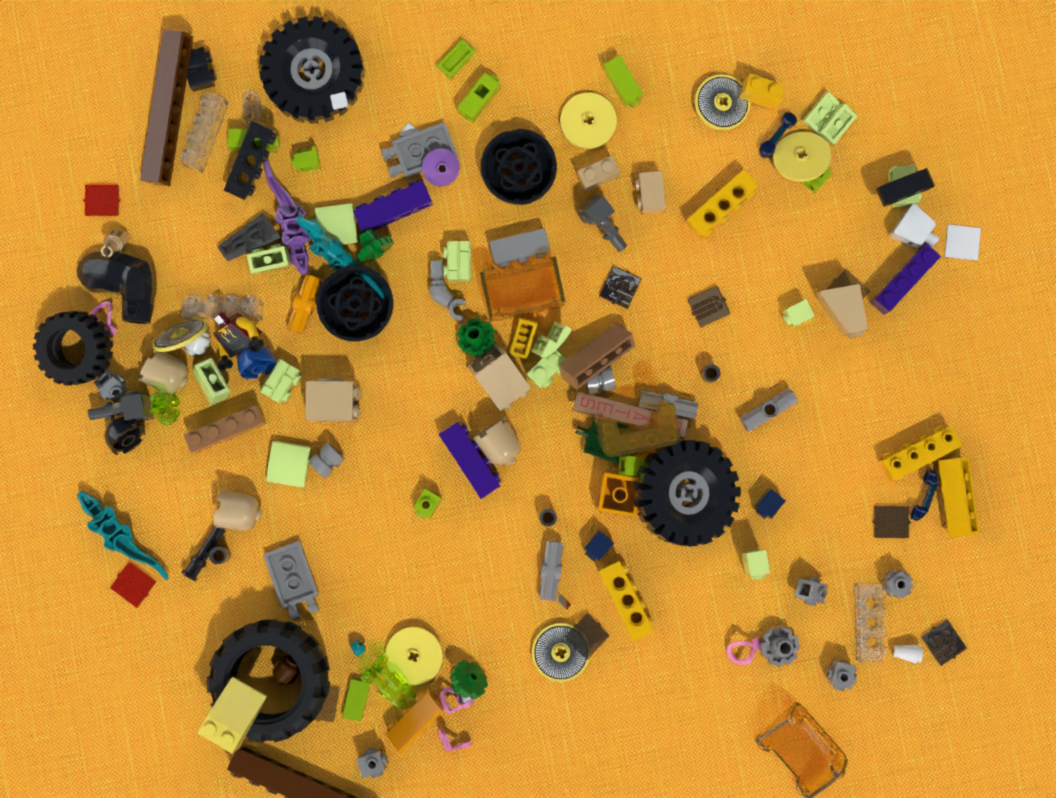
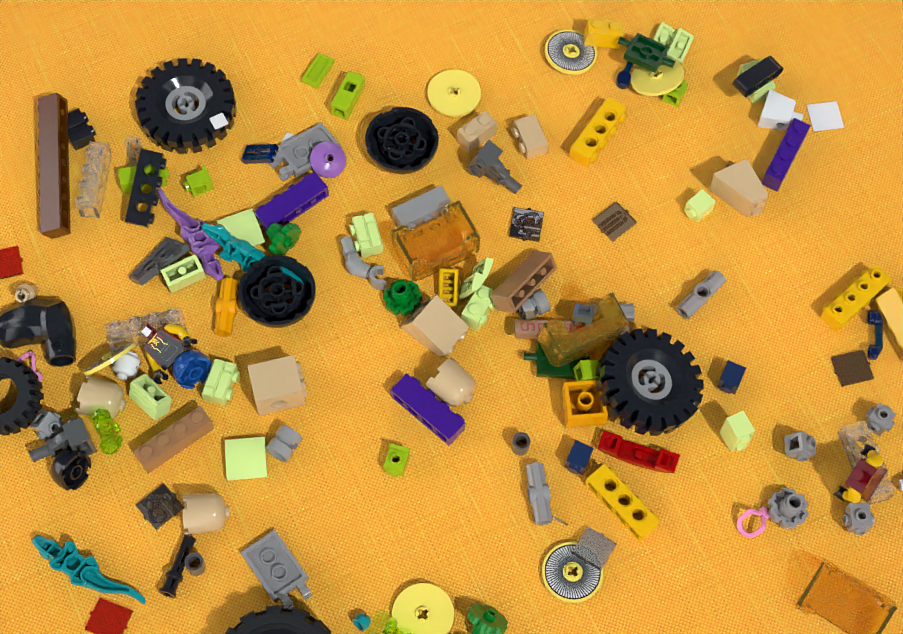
camera: 20 degrees left, 20 degrees down
(199, 488) = (159, 506): none -> clear smoke piece
(383, 149) = (258, 156): none -> clear blue tile
(623, 81) = (476, 54): lime brick -> none
(645, 405) = (583, 313): none -> sand blue tile
(656, 556) = (638, 455): none -> red slope
(716, 370) = (638, 270): dark grey beam -> none
(798, 127) = (646, 52): none -> dark green plate
(860, 643) = (864, 477): none -> torso

